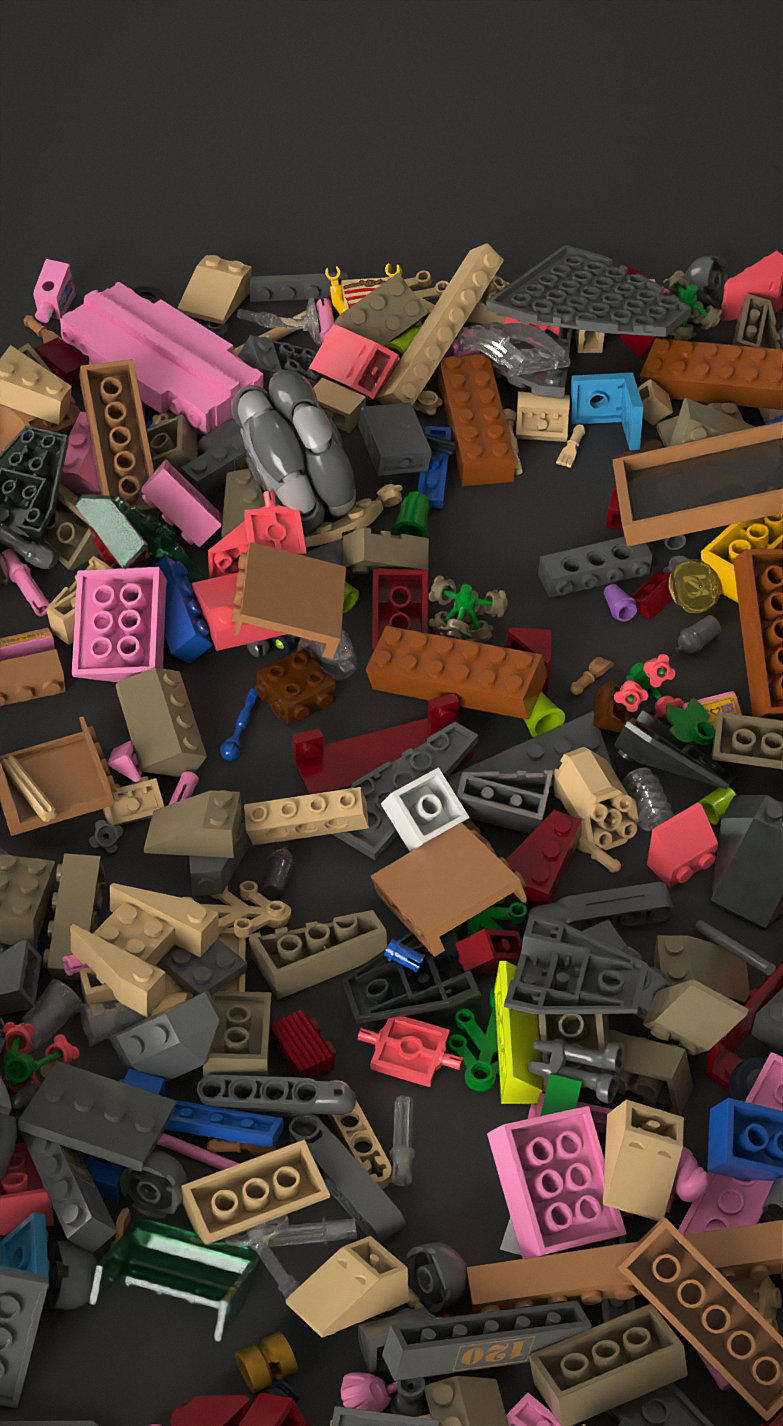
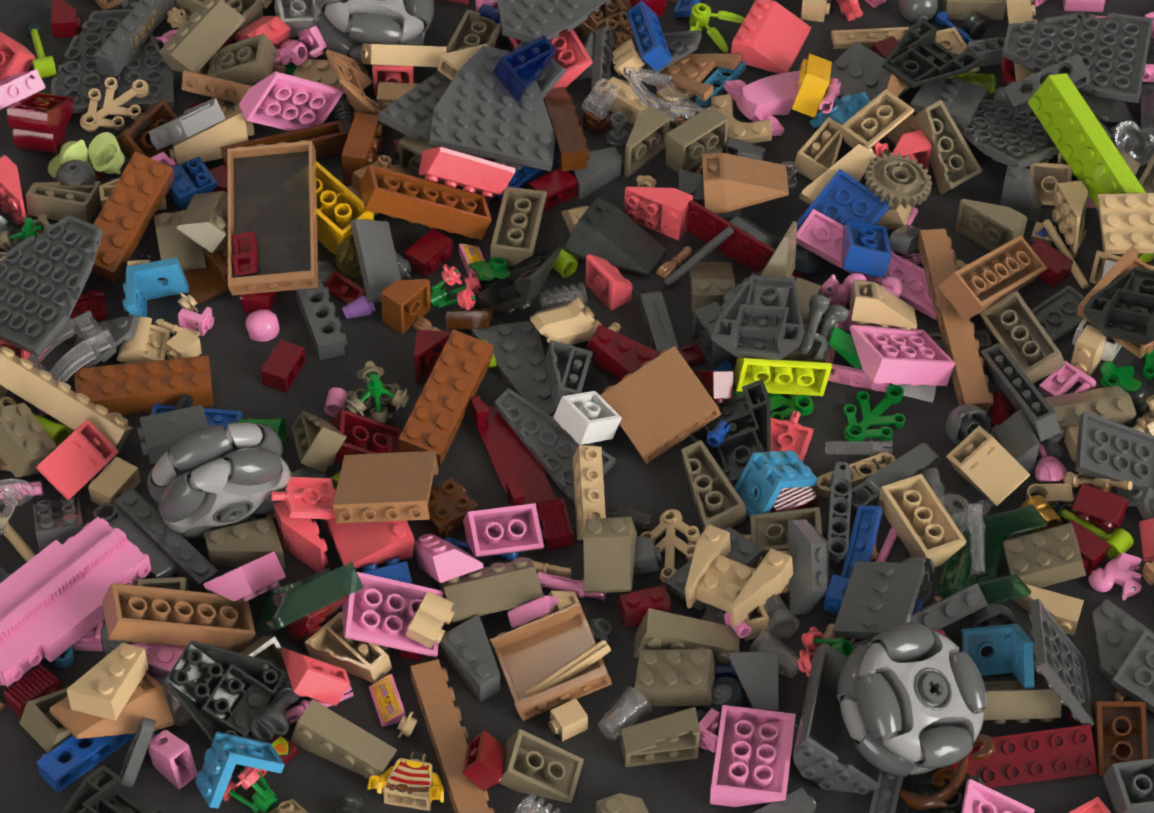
camera: 90 degrees left, 0 degrees up
(45, 558) = (315, 677): none -> coral slope
(59, 710) = (472, 658): none -> dark grey wedge
(99, 1362) = (1063, 608): none -> tan slope
(103, 651) = (429, 620): none -> tan brick
(132, 866) = (635, 604): none -> dark red brick
(175, 1350) = (1045, 556): none -> dark tan brick
(204, 672) = (443, 559): none -> bright pink slope
(210, 780) = (552, 569): none -> tan piece
(228, 1259) = (976, 531): none -> clear pin
(250, 734) = (503, 530): none -> bright pink slope
(268, 785) = (555, 524): none -> dark red brick
(315, 1006) = (770, 474): none -> dark azure bracket
(316, 1396) = (1052, 493): none -> tan piece
(459, 1161) = (860, 431): none -> green plant
(462, 578) = (335, 401): none -> bright pink beam
(516, 535) = (283, 366): none -> dark red brick
(539, 448) = (183, 345): none -> tan brick
(581, 460) = (196, 321): none -> bright pink bracket
(584, 517) = (262, 325): none -> bright pink hair
(591, 361) = (91, 301): none -> dark red plate
(610, 449) = (187, 302): none -> tan plate
(614, 634) = (405, 302): none -> dark orange slope
(651, 469) = (245, 257): none -> dark red slope
(677, 600) = (375, 256): none -> dark grey tile
(694, 1130) = (840, 293): none -> bright pink animal
(717, 665) = (429, 252): none -> dark red brick
(732, 929) = (670, 266): none -> medium nougat piece

